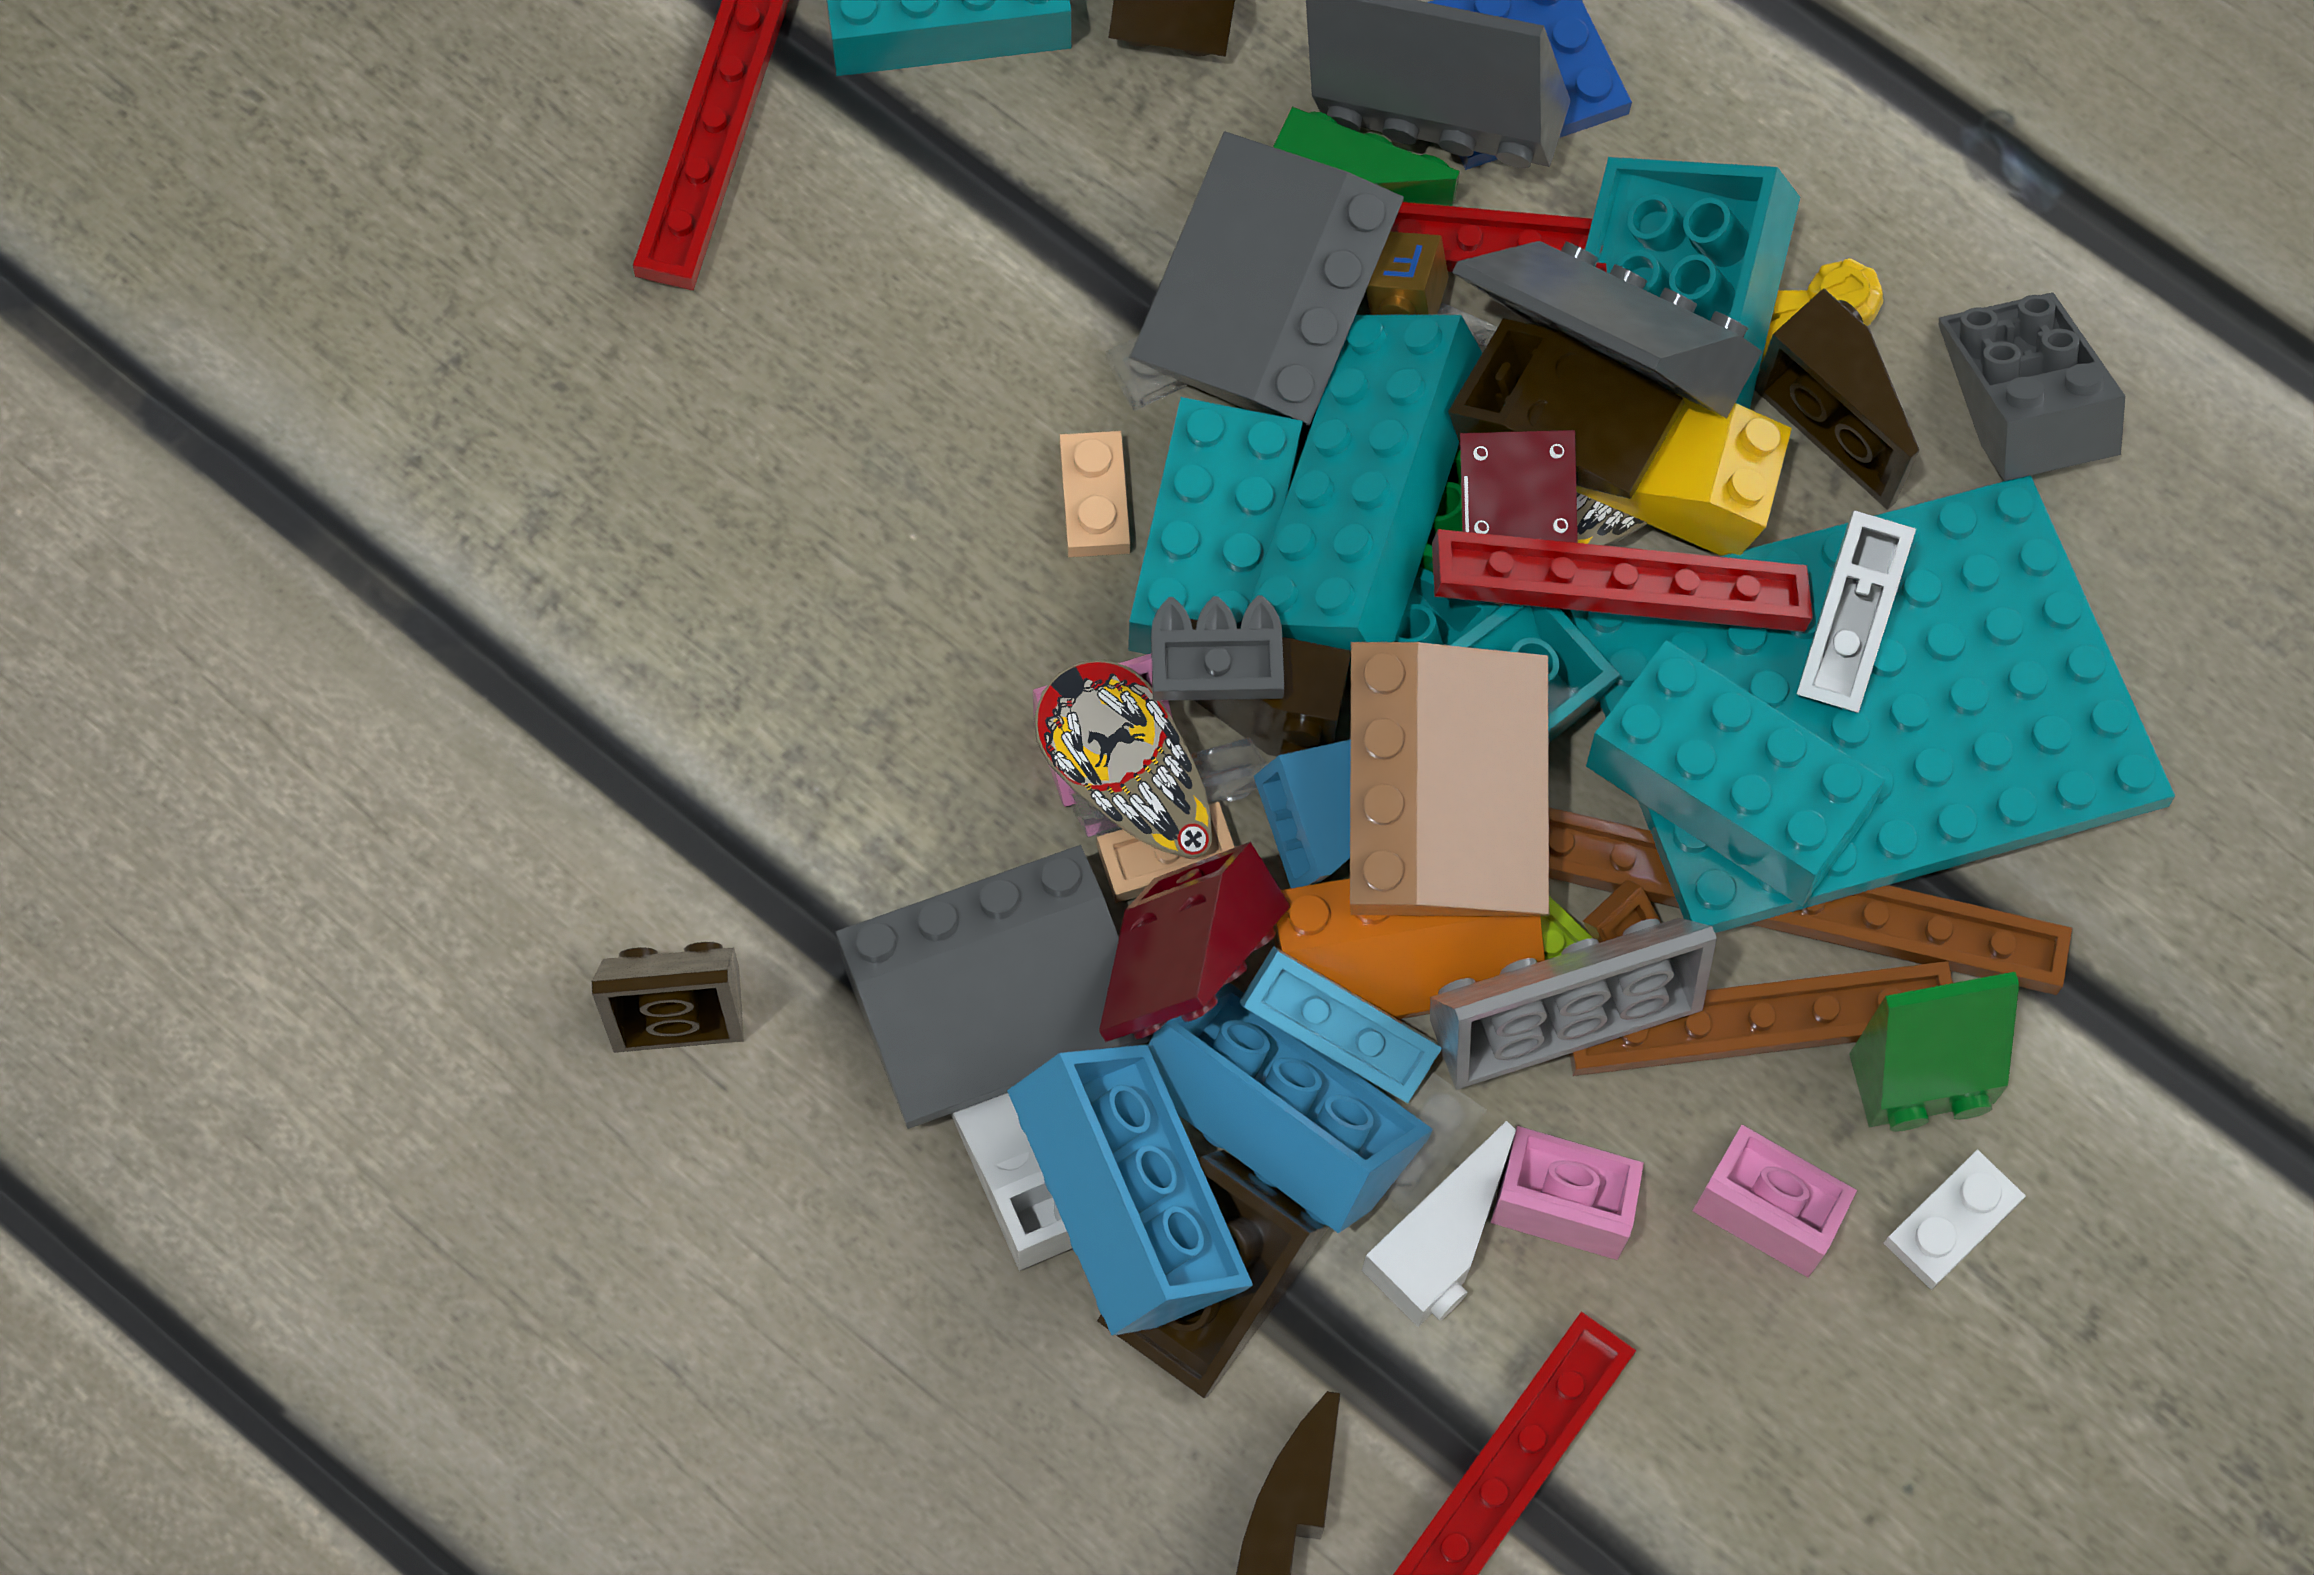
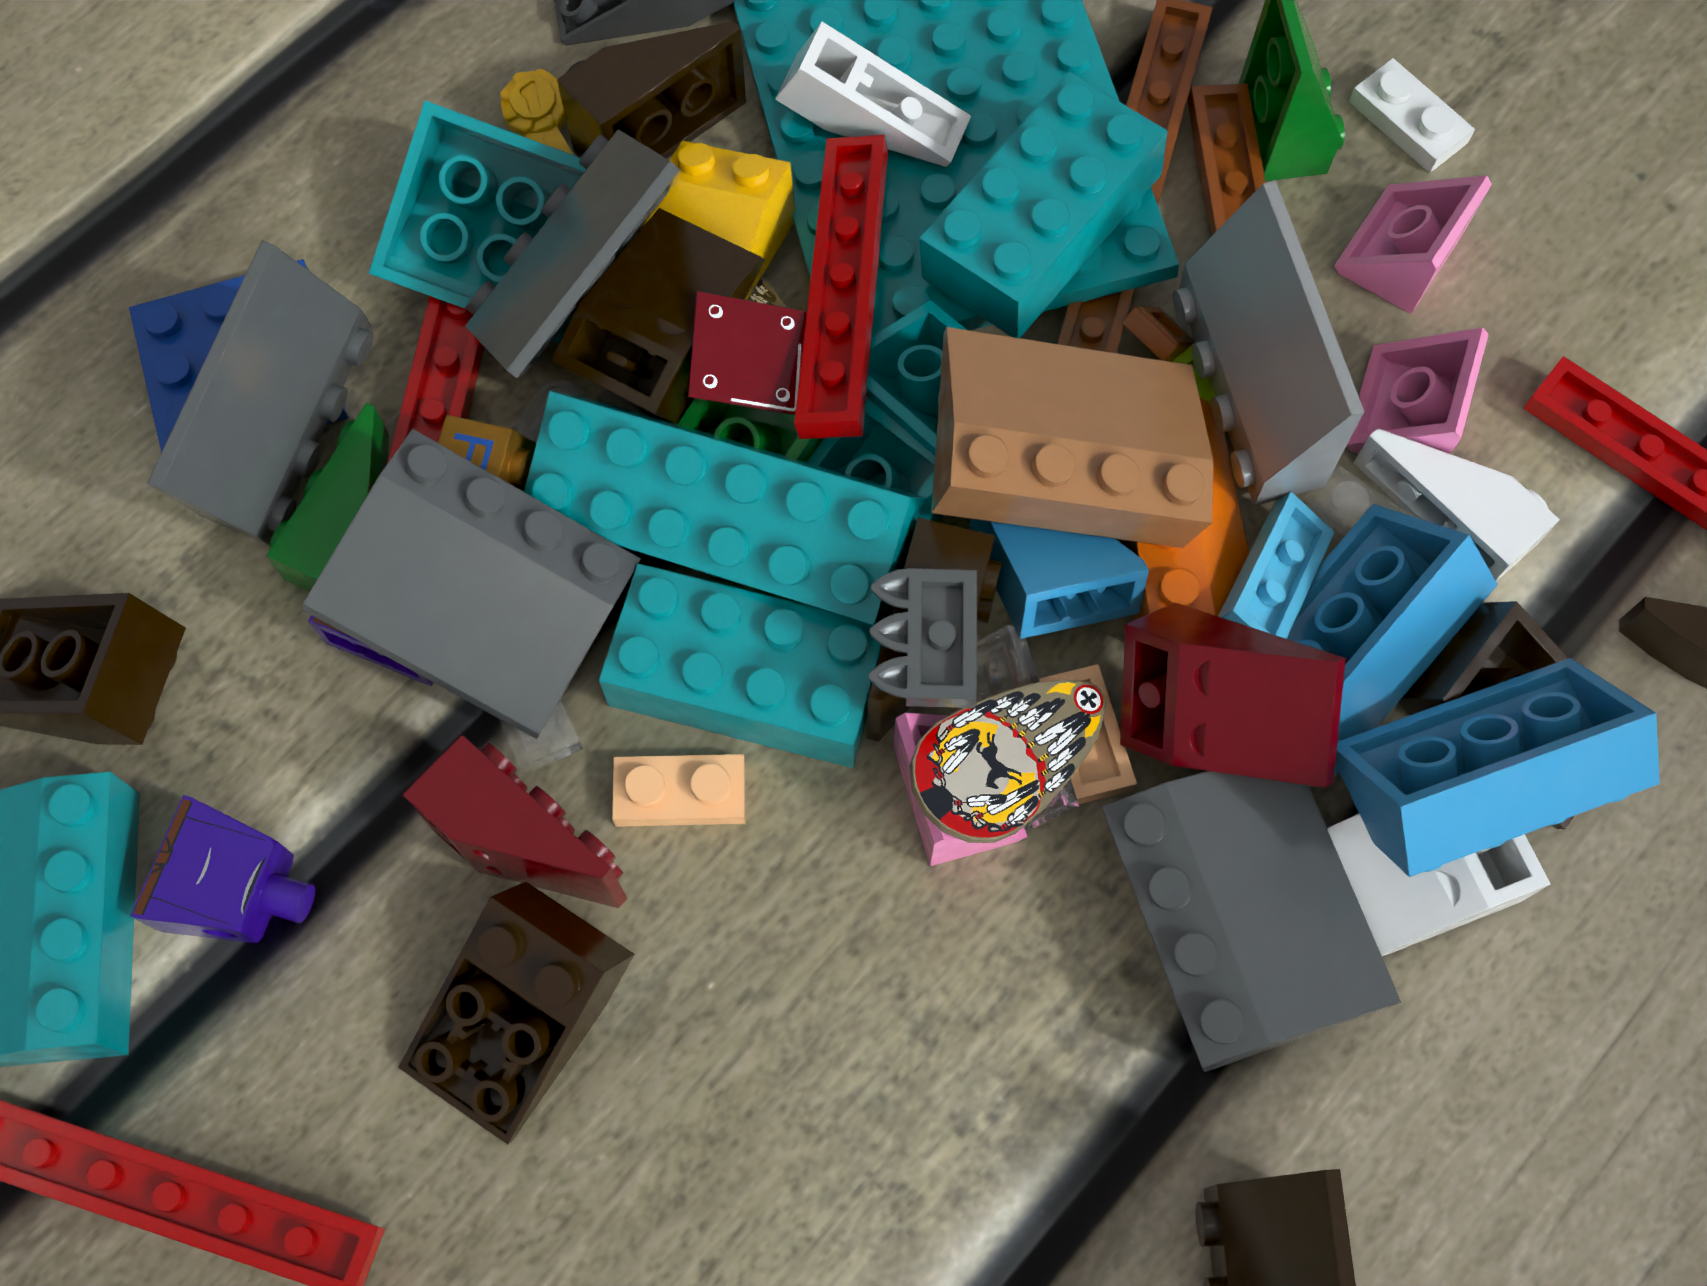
camera: 85 degrees left, 0 degrees up
(885, 370) = (514, 1008): none -> dark brown slope
(990, 119) = (219, 879): none -> dark purple torso
(1045, 327) = (511, 834): none -> dark red slope

